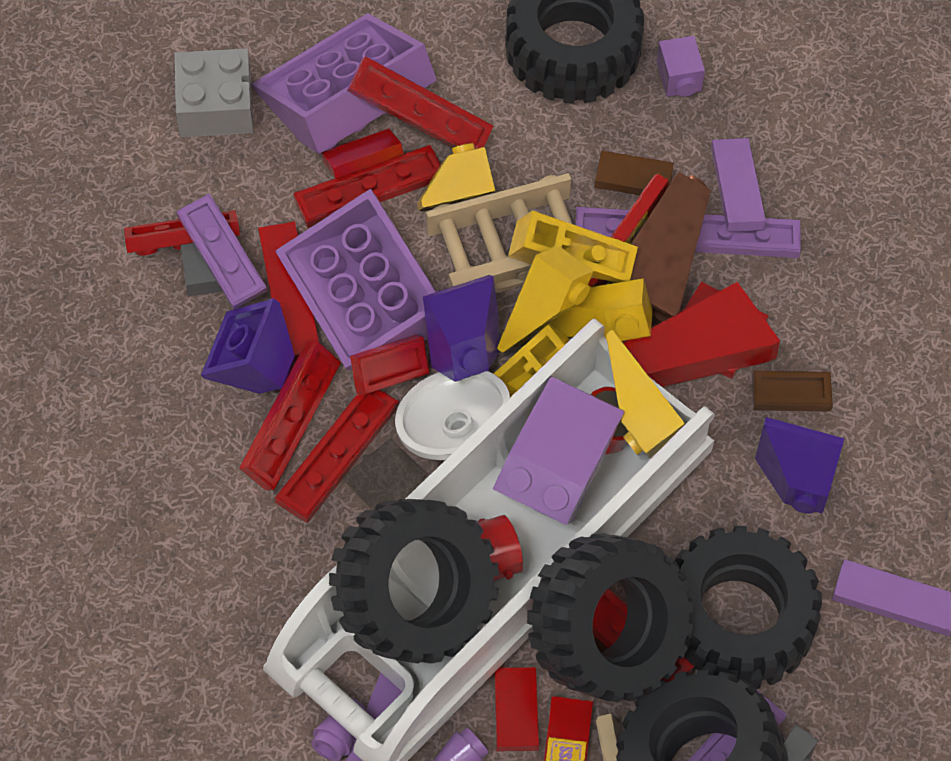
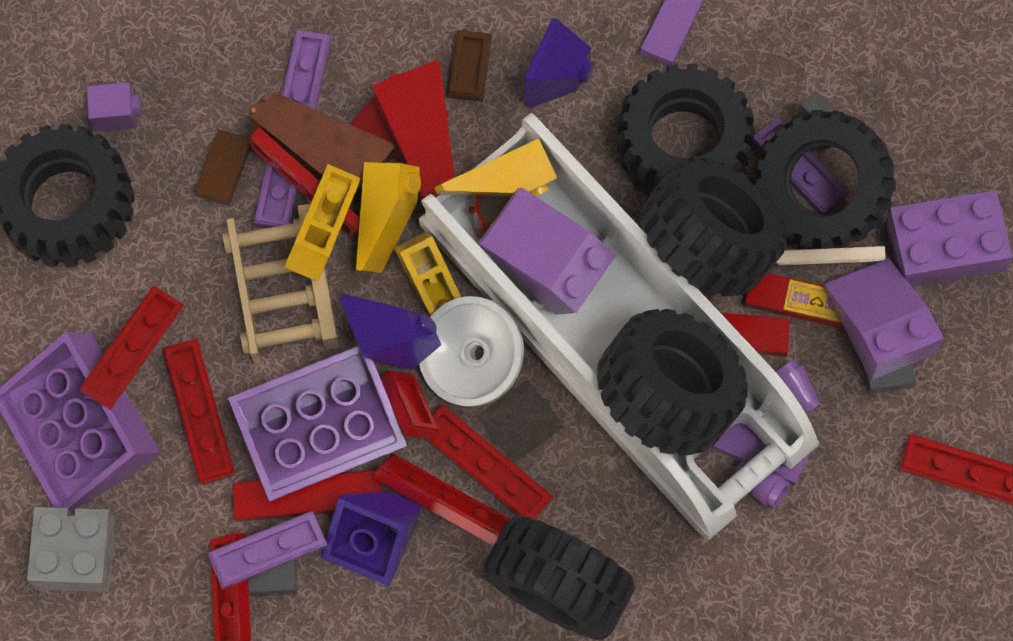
camera: 80 degrees left, 10 degrees up
(197, 506) = (559, 577): none -> black tyre
(362, 153) = (163, 412): red tile -> none
(459, 178) = (213, 324): yellow slope -> none
(505, 544) = (614, 315): red piece -> none
(550, 289) = (377, 246): yellow slope -> none
(738, 185) = (252, 76): medium lavender tile -> none

